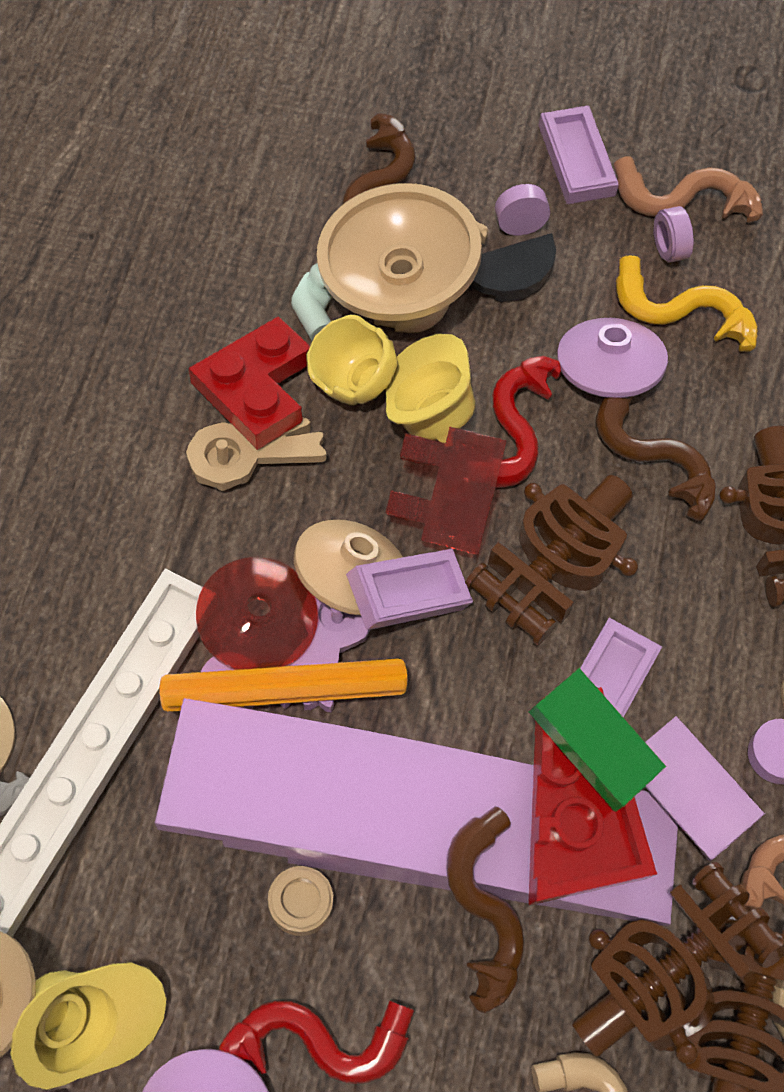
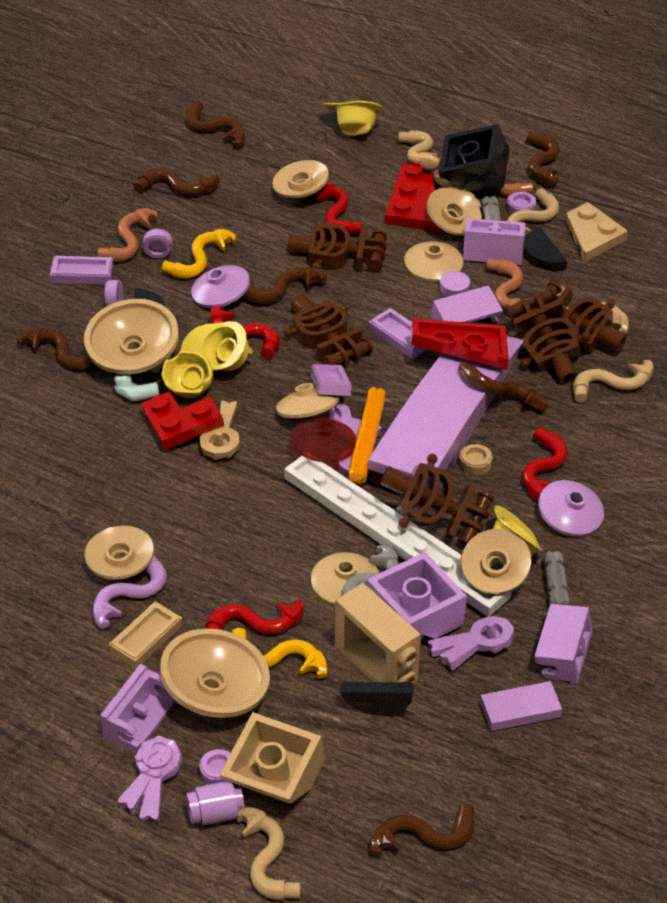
camera: 70 degrees left, 20 degrees down
(109, 911) = (407, 487): none -> reddish brown torso
(462, 489) = (283, 350): clear red plate -> none
(597, 739) = (439, 321): green tile -> none

